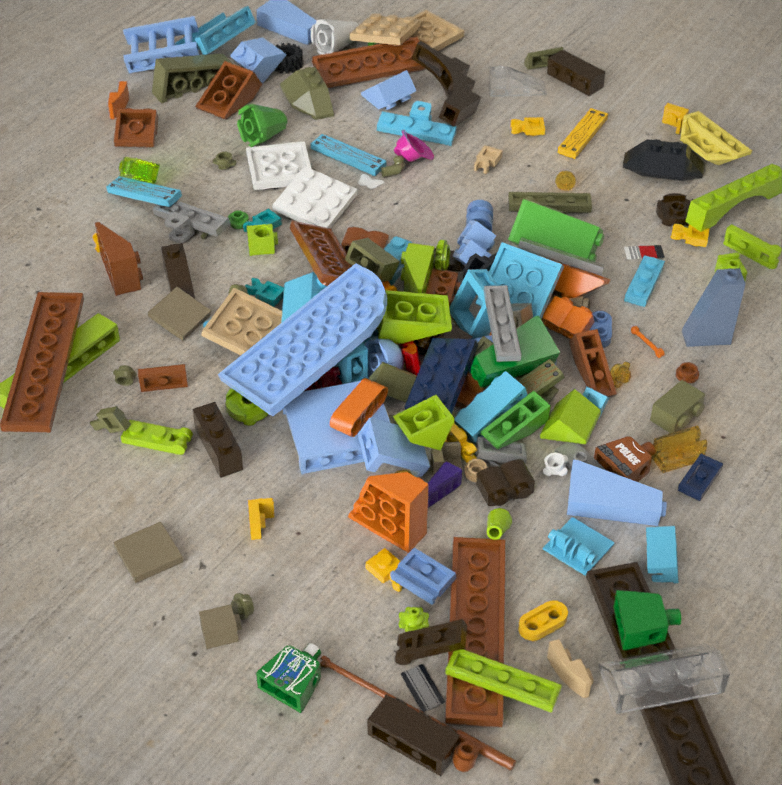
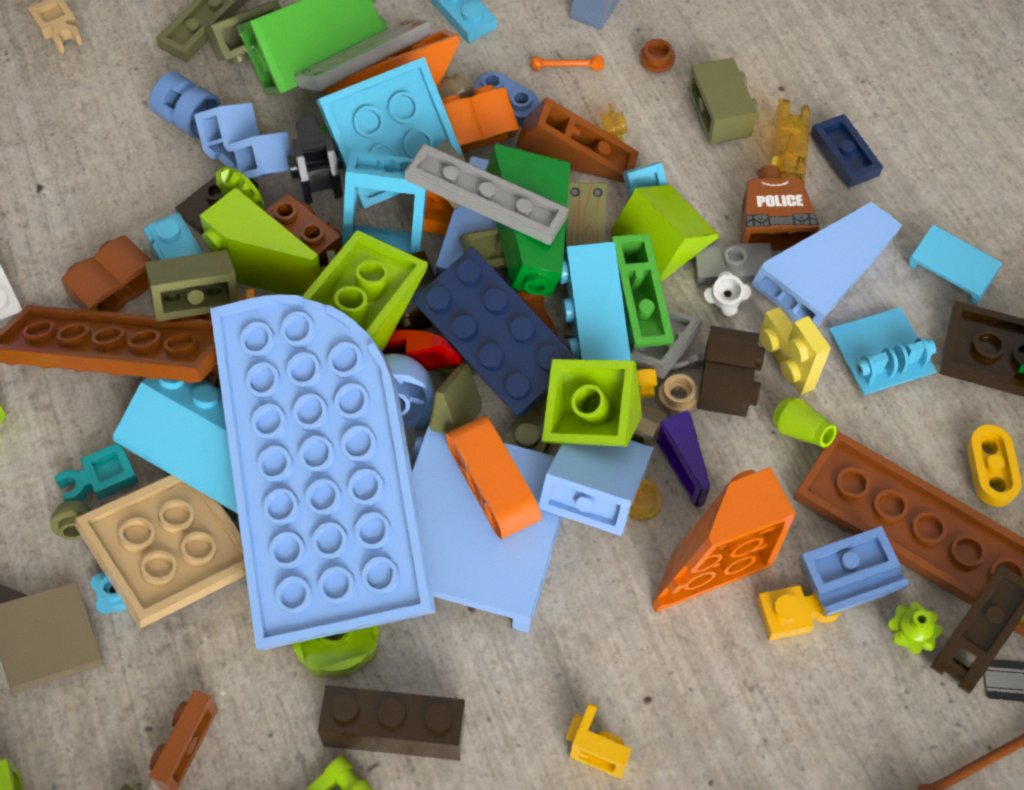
camera: 60 degrees left, 15 degrees up
(537, 499) = (796, 347): none -> light yellow plate

